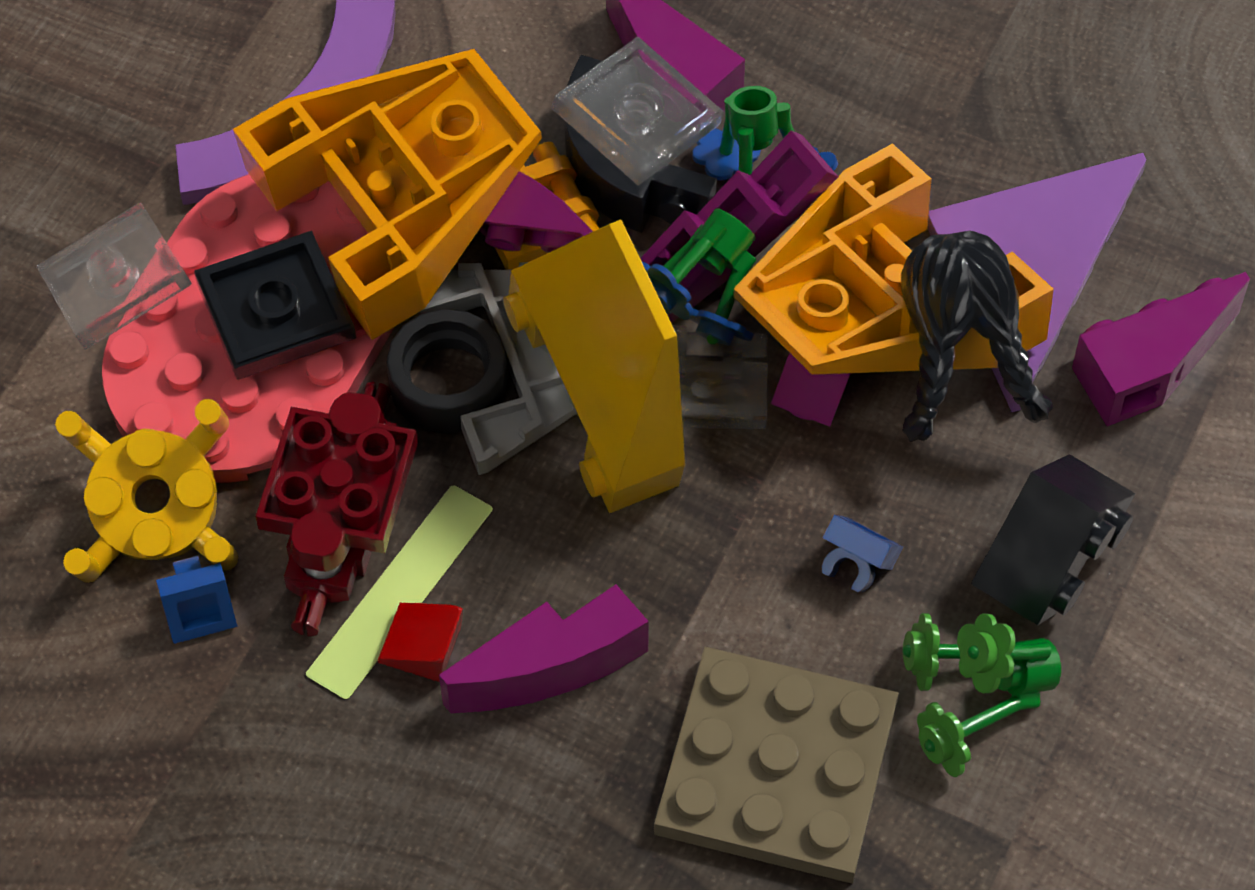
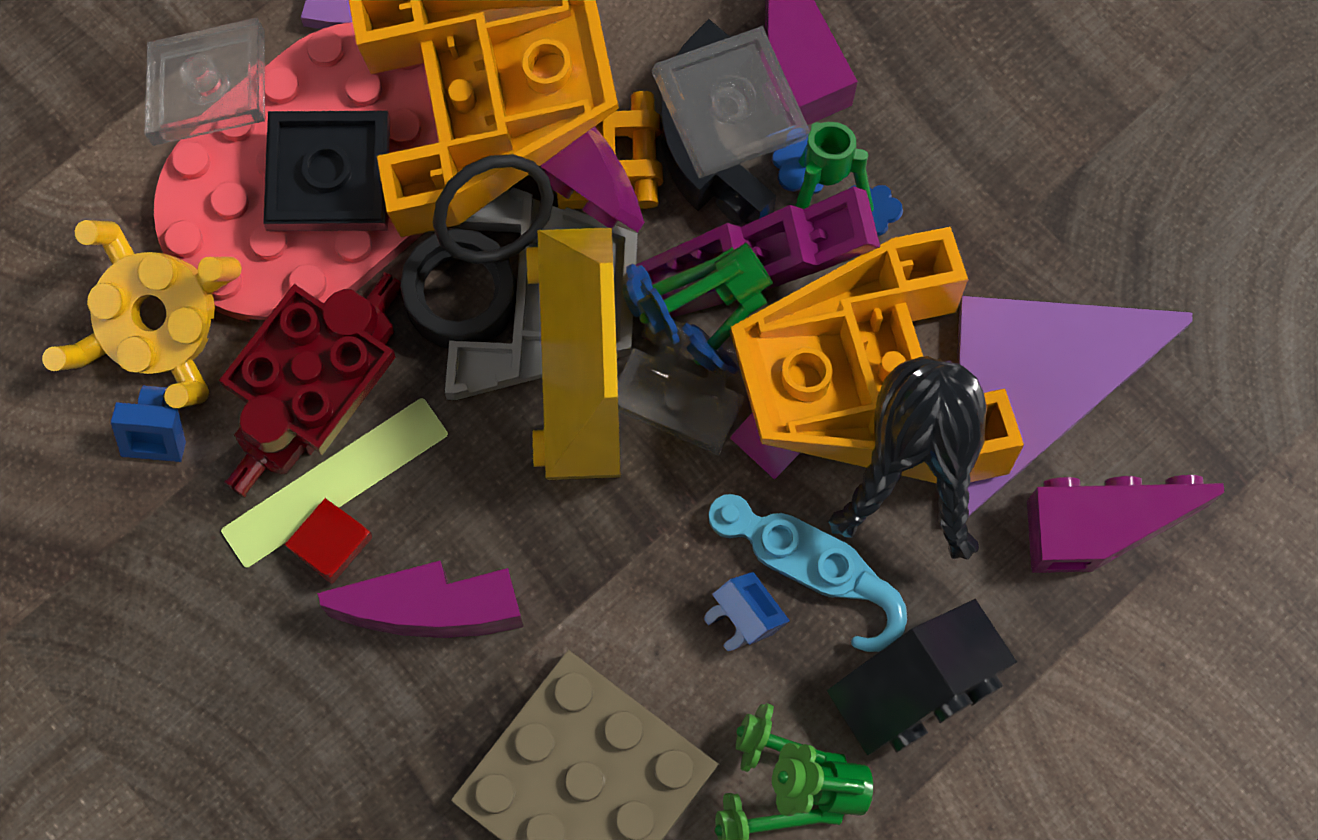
camera: 20 degrees right, 15 degrees up
(416, 257) = (464, 176): none -> black piece
(895, 485) = (811, 560): none -> medium azure piece

